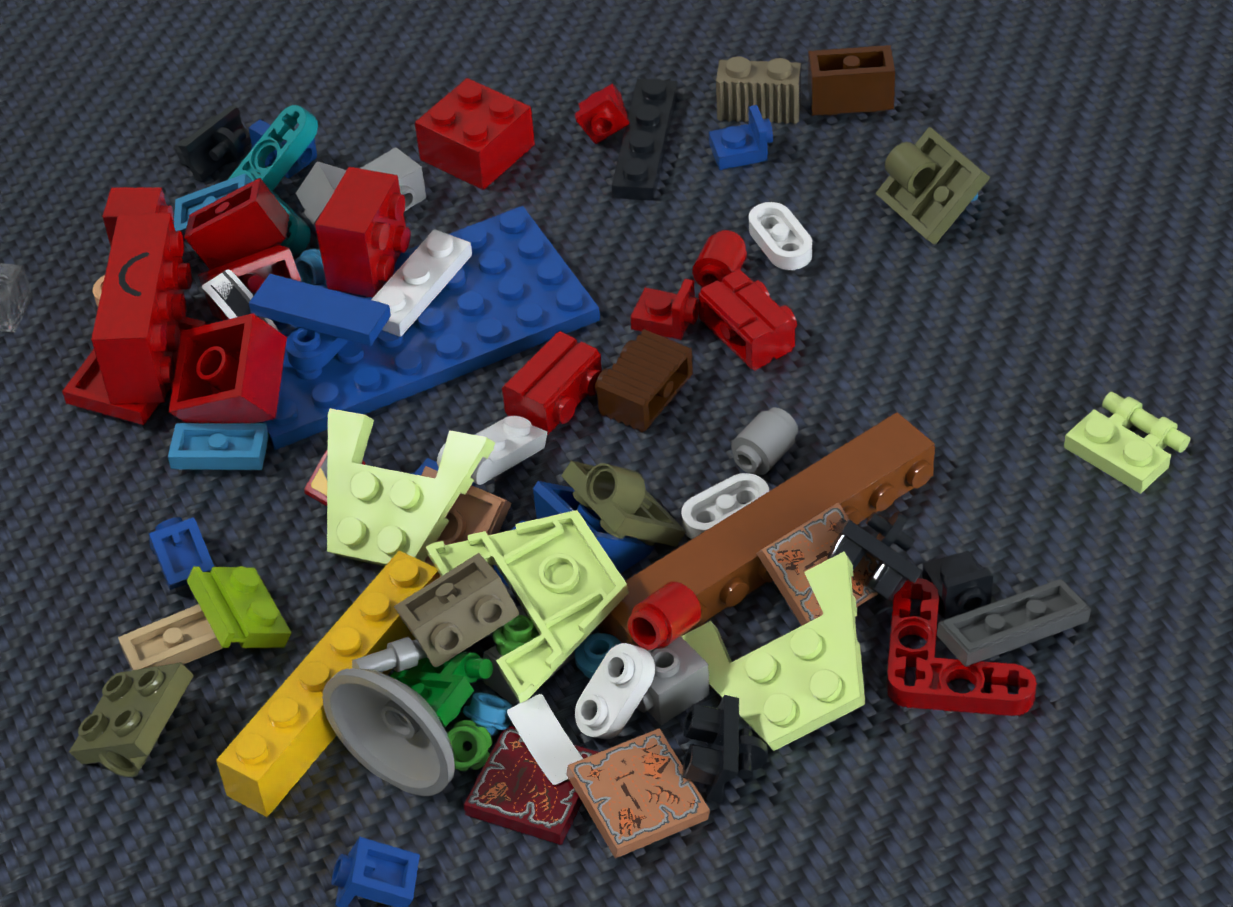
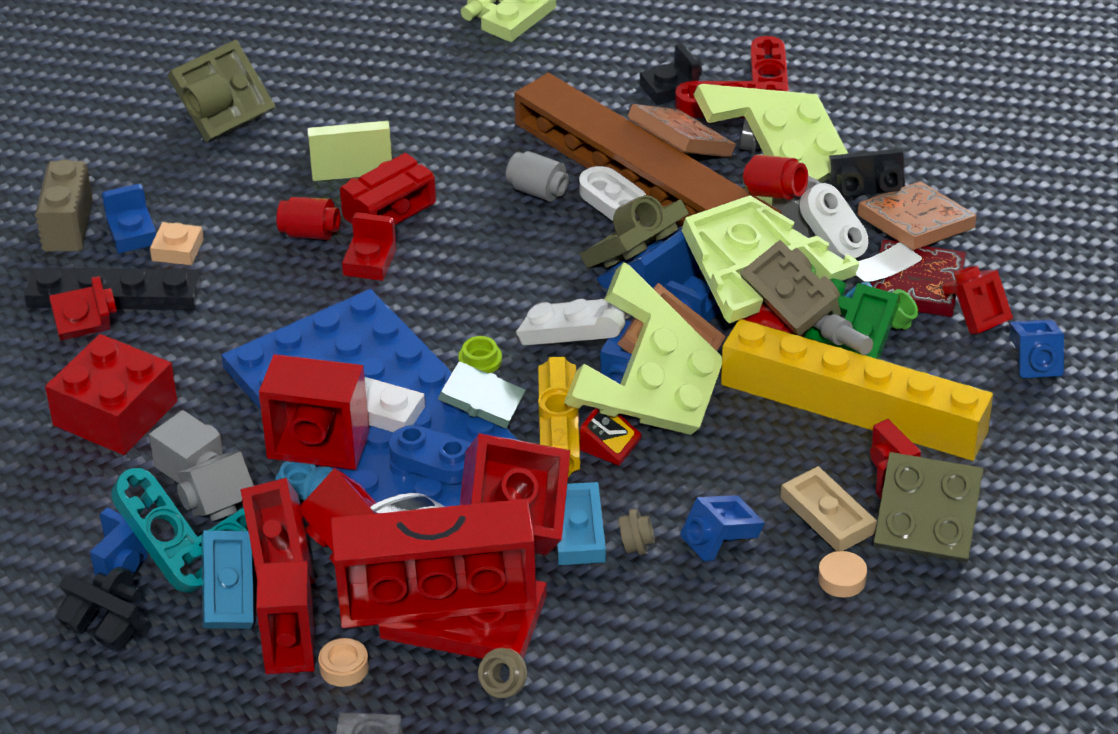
camera: 100 degrees left, 5 degrees down
(51, 383) = (490, 673): none -> dark tan plate
(91, 647) = (842, 574): none -> light nougat tile
(189, 476) = (636, 532): none -> dark tan plate
(223, 705) = (888, 439): none -> red bracket
(239, 607) = (784, 465): lime plate -> none
(320, 309) = (423, 434): blue tile -> none
(387, 438) = (556, 419): none -> yellow piece
(390, 730) = (923, 311): light grey dish -> none
(407, 378) = (482, 394): none -> piece
(459, 822) = (980, 298): none -> red bracket
(479, 388) = (481, 354): none -> lime plate
(553, 382) = (477, 303): red brick -> none
(643, 379) = (468, 248): reddish brown brick -> none
(707, 177) = (176, 243): none -> light nougat plate
(780, 236) = (270, 186): white plate -> none
(840, 291) = (348, 149): none -> yellowish green slope
(851, 80) = (63, 131): reddish brown brick -> none
(892, 568) = (674, 89): black hips -> none
(1013, 622) = (713, 48): dark grey tile -> none

